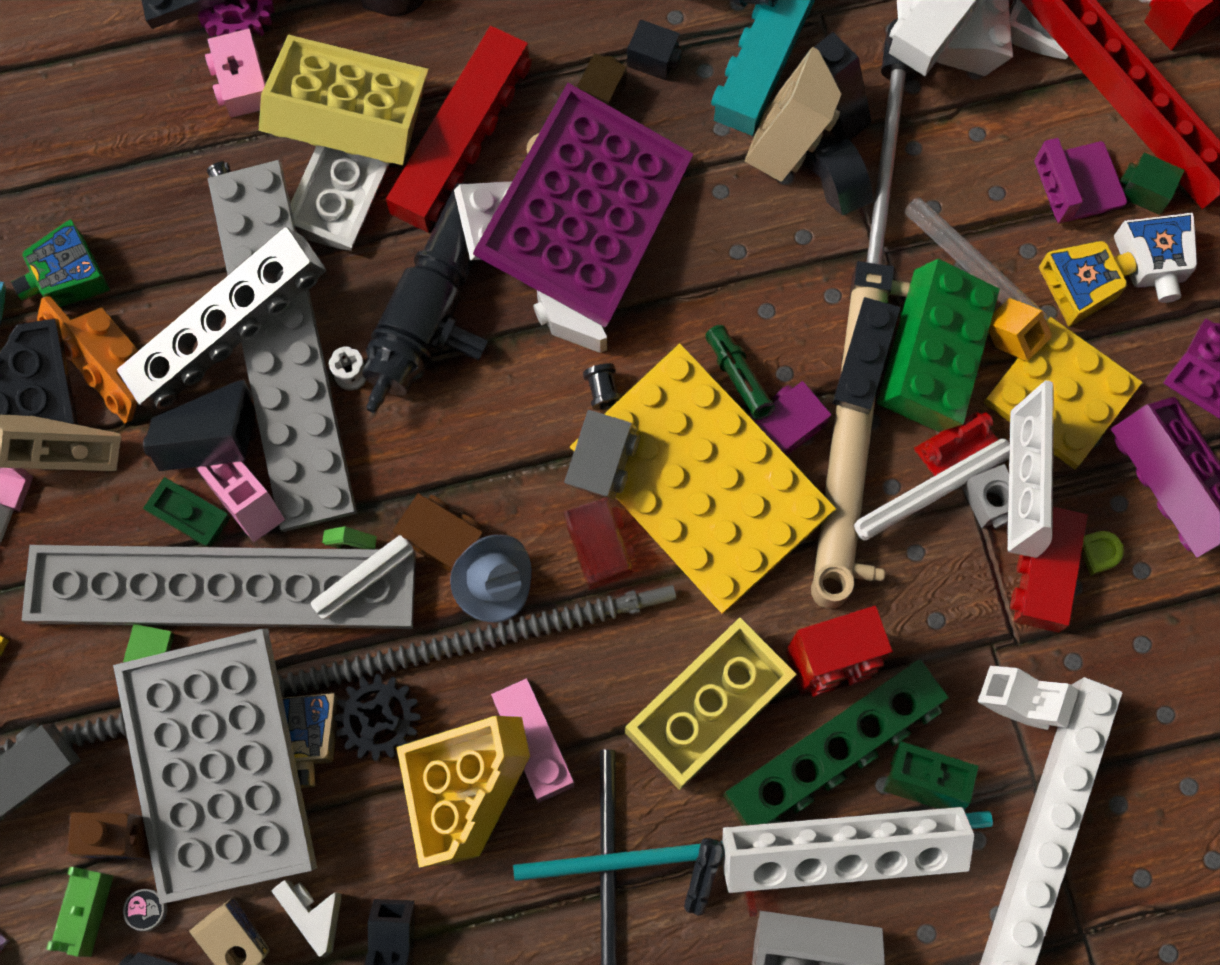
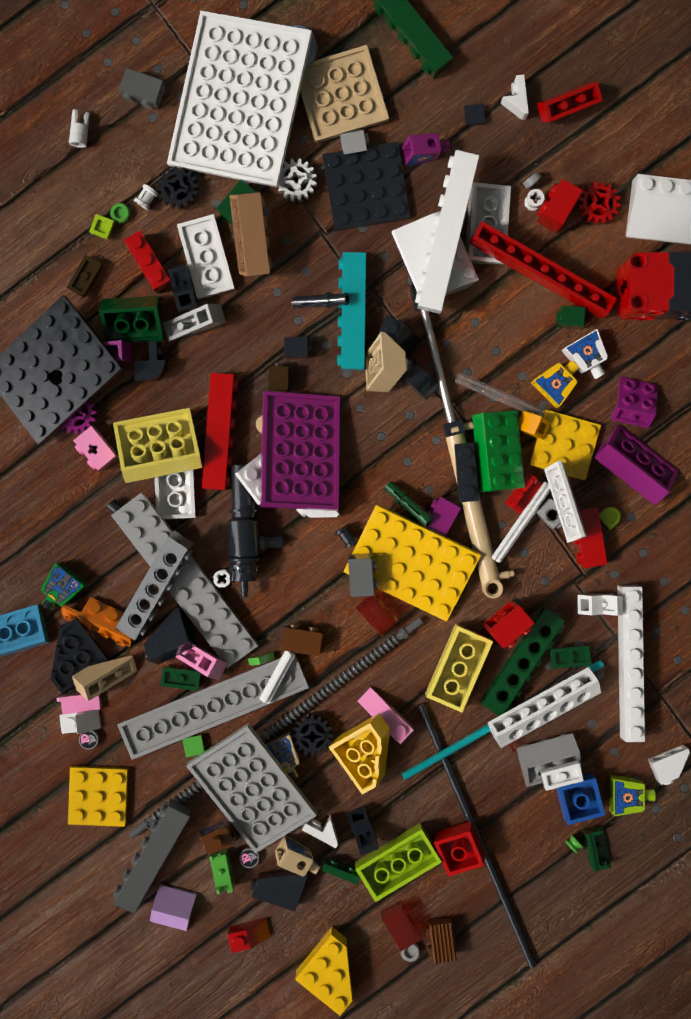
camera: 25 degrees left, 15 degrees up
(492, 578) = (336, 651): sand blue hat -> none
(703, 876) = (486, 743): black axle -> none
(1078, 180) = (535, 329): magenta bracket -> none

